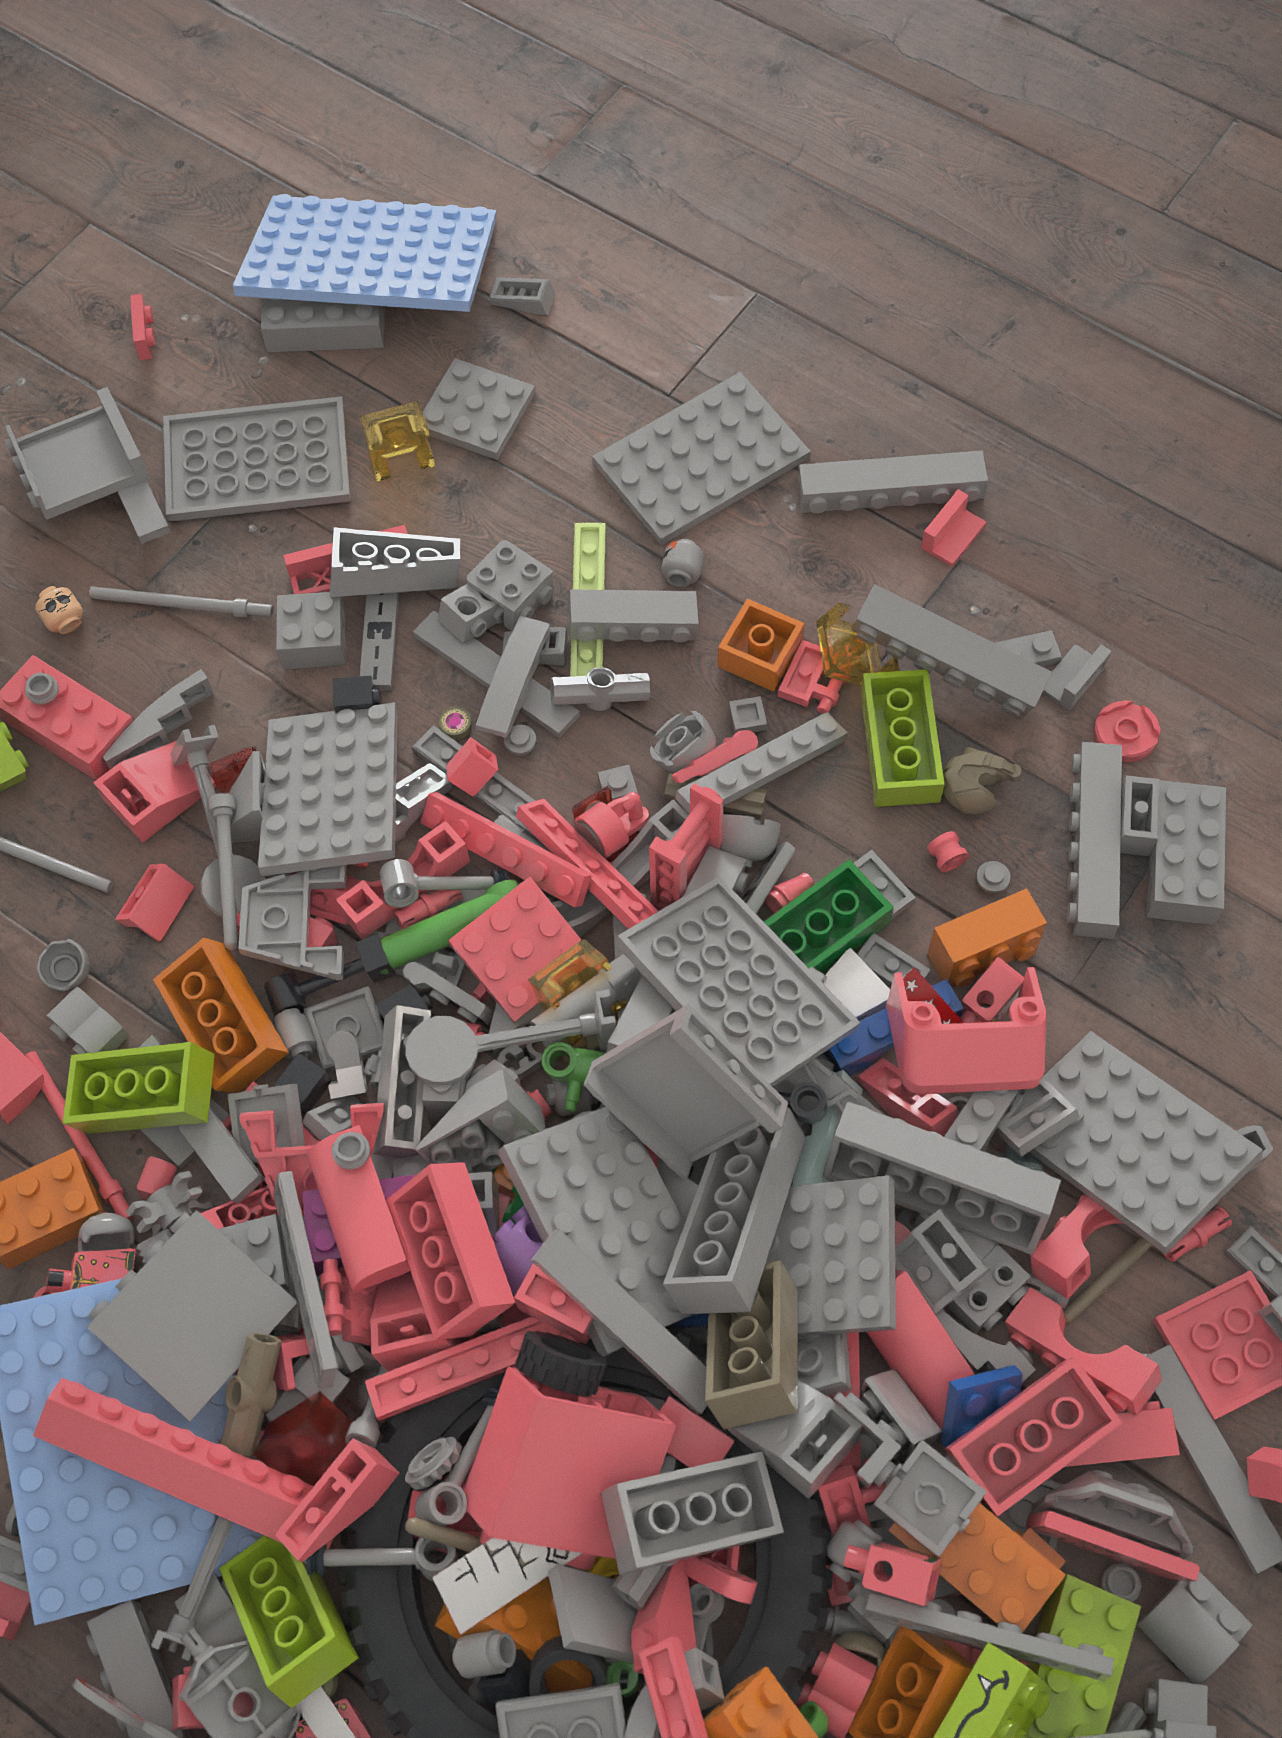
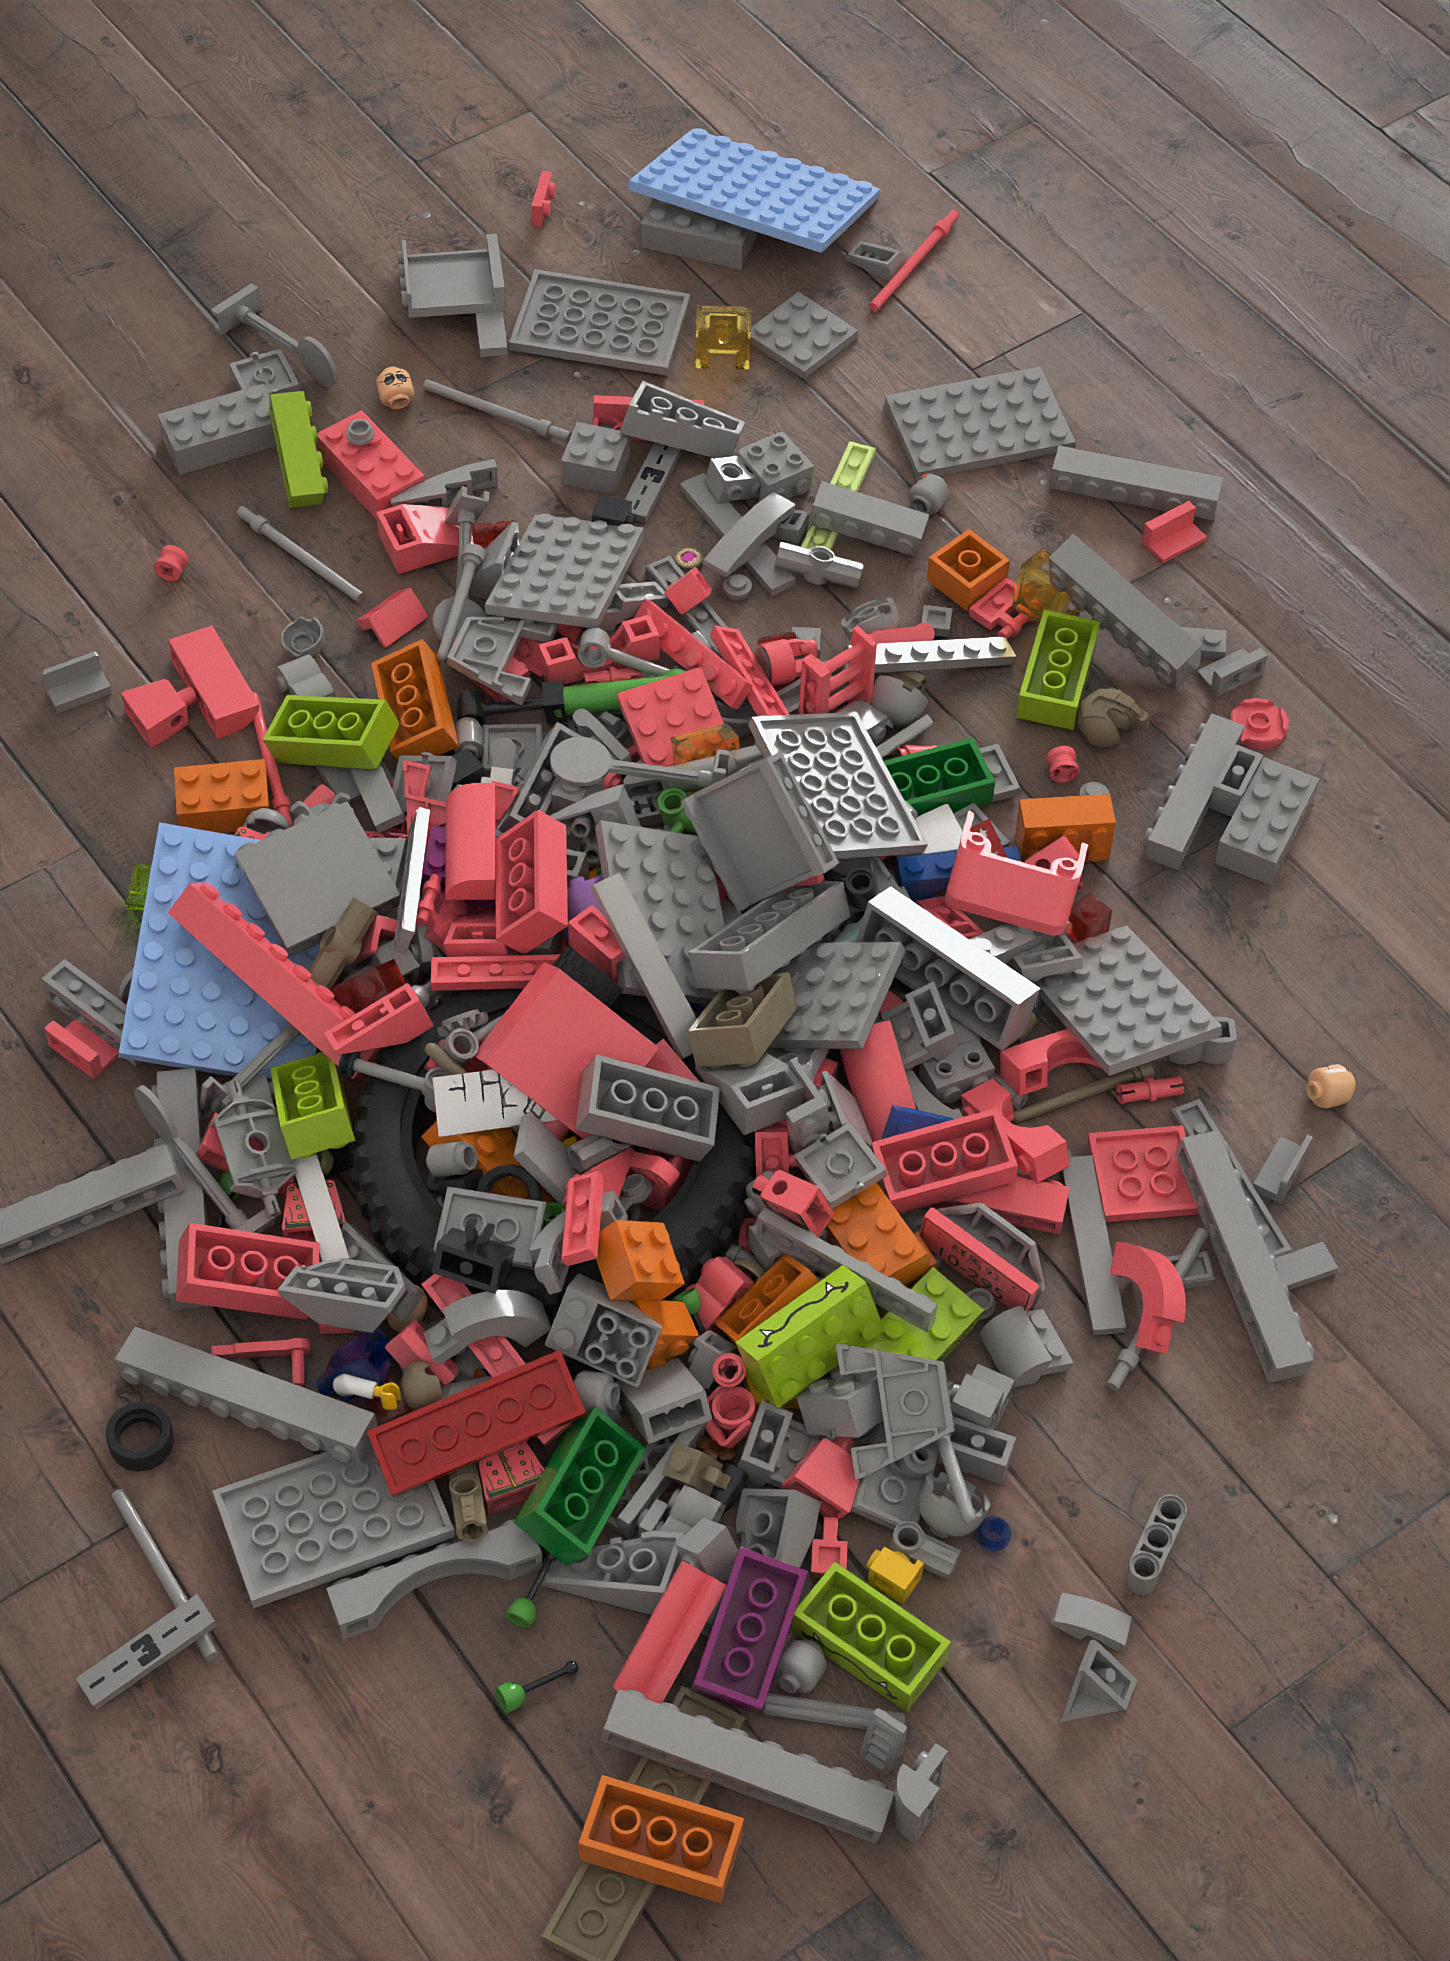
camera: 15 degrees right, 10 degrees down
(351, 1150) = (481, 793): light grey plate -> none
(575, 241) = (939, 232): none -> coral bar
(1057, 1039) = (1089, 918): none -> clear red brick

